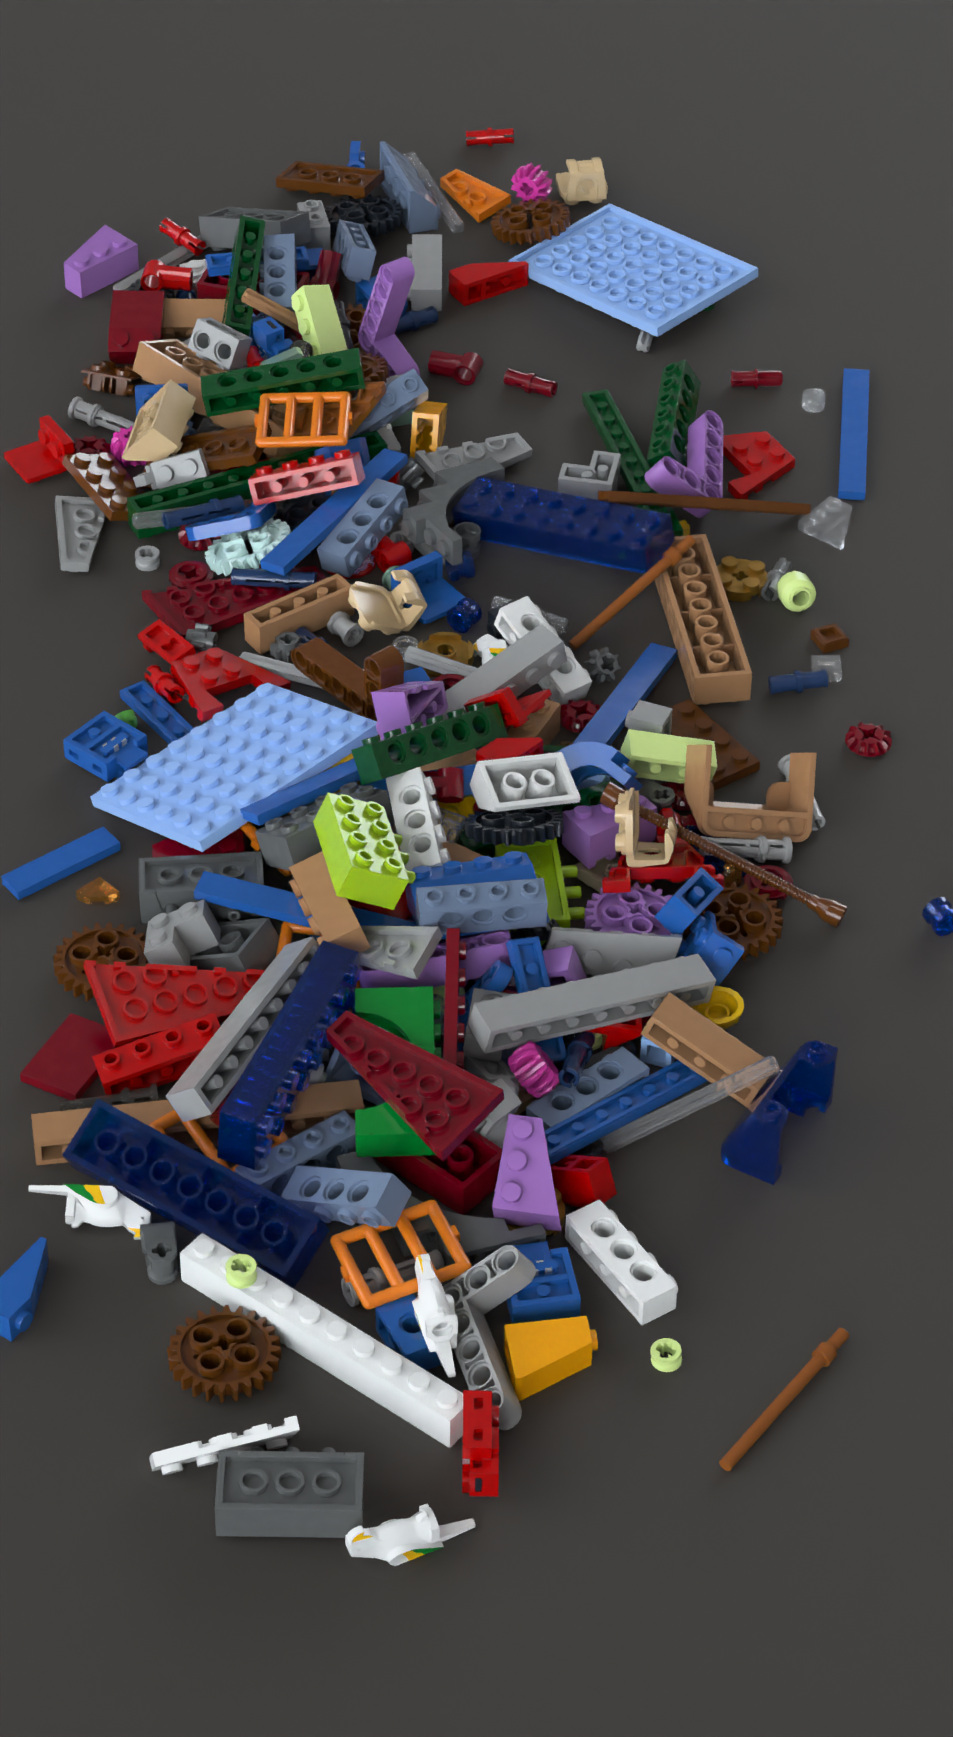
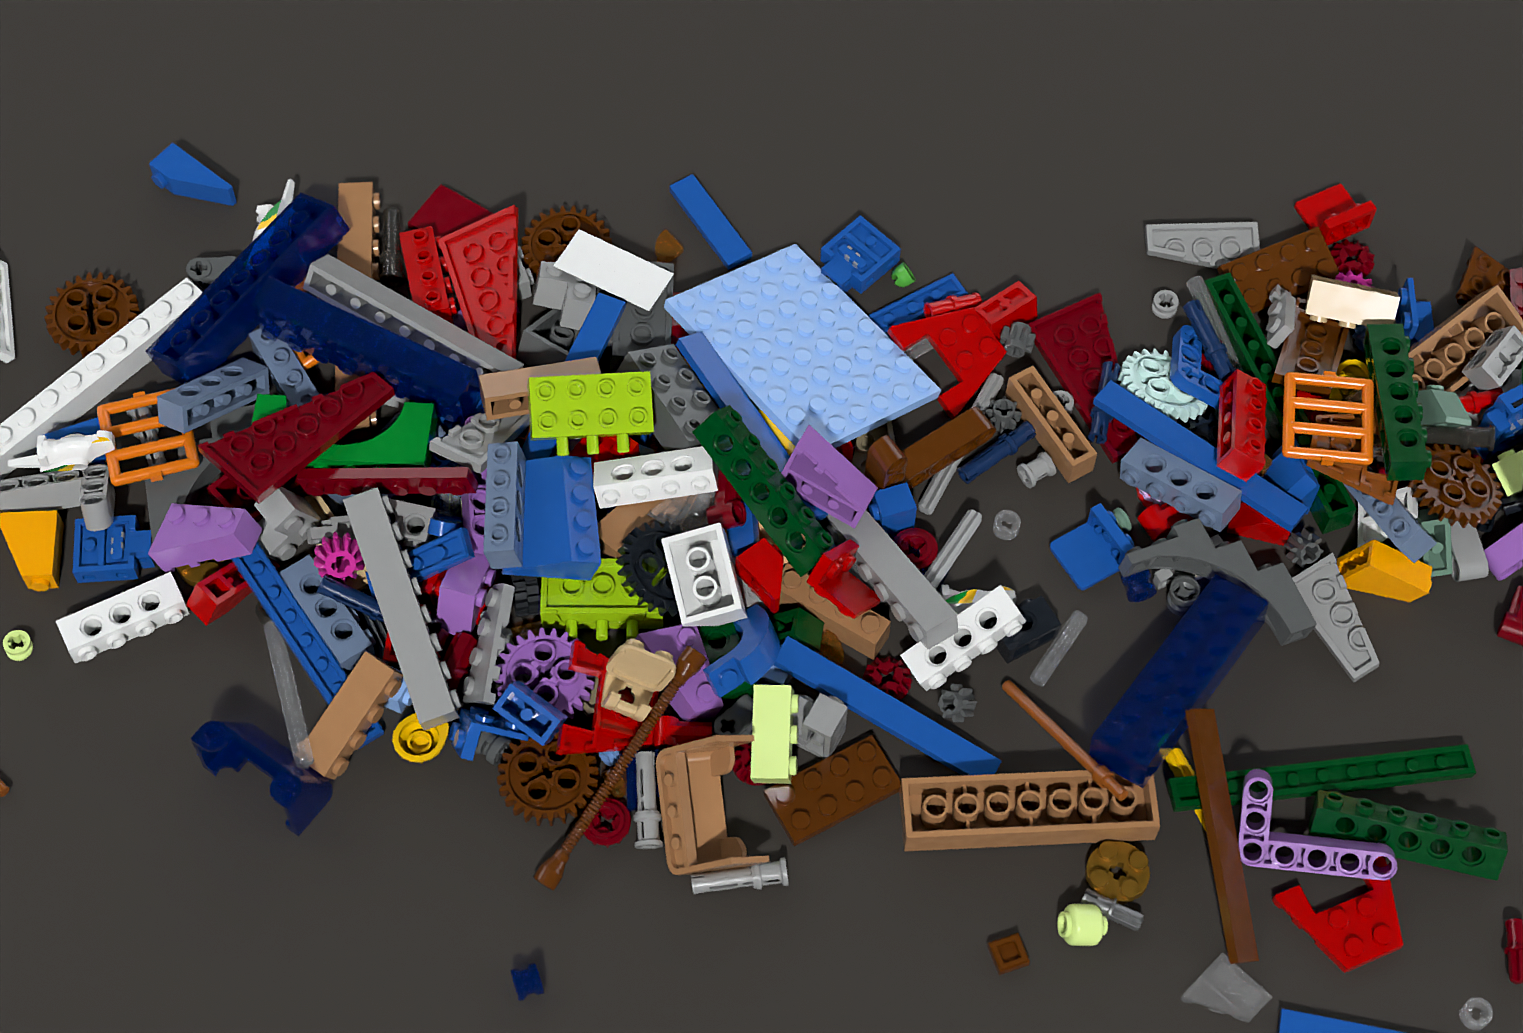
camera: 95 degrees right, 20 degrees up
(96, 416) = (1408, 262): light grey pin -> none
(155, 893) = (613, 270): none -> white sticker
(183, 574) = (1126, 331): dark red gear -> none
(233, 1274) = (143, 320): yellowish green bush -> none
(384, 608) = (1054, 496): tan piece -> none
(448, 643) = (986, 574): pearl gold plate -> none
(464, 615) = (1053, 580): clear blue wheel -> none
(530, 383) = (1495, 695): dark red pin -> none
(587, 480) = (1277, 735): light grey brick -> none
(798, 681) = (926, 903): dark blue pin -> none
(830, 663) = (953, 940): clear tile -> none
(868, 747) = (826, 977): dark red gear -> none

